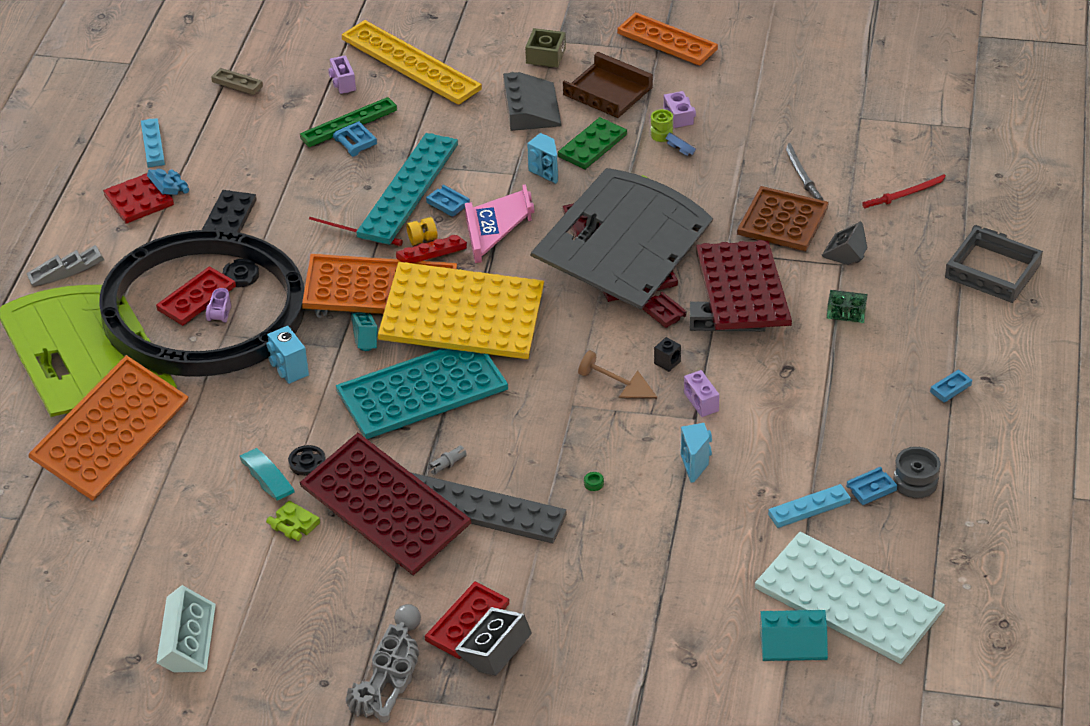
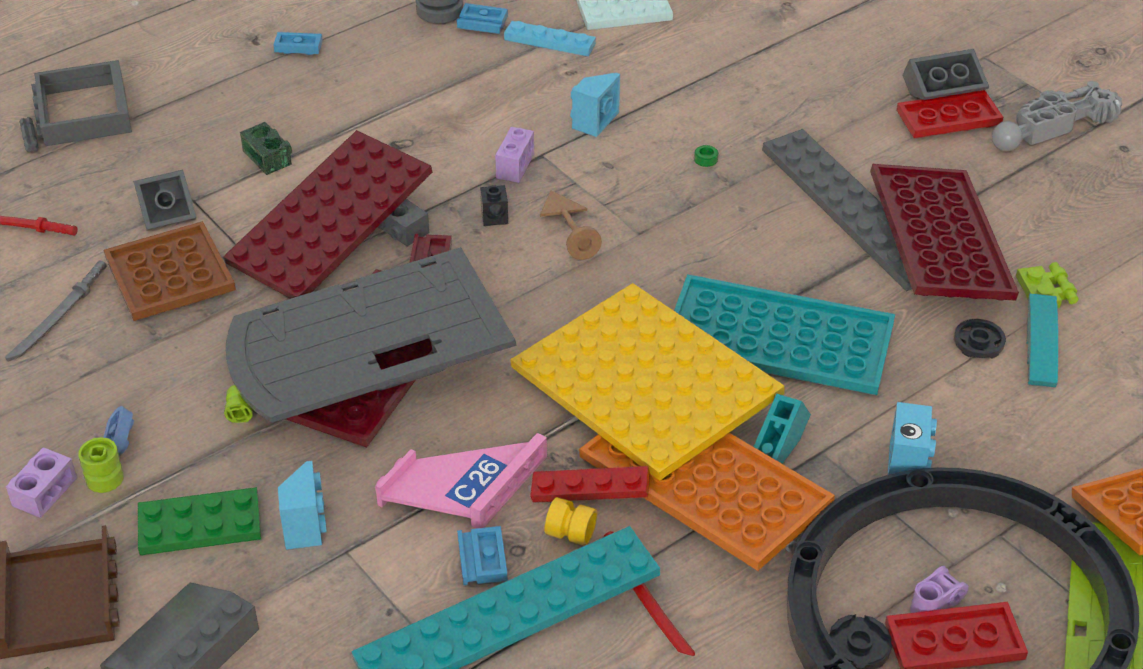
camera: 140 degrees left, 0 degrees up
(447, 460) = (846, 246): light grey pin -> none

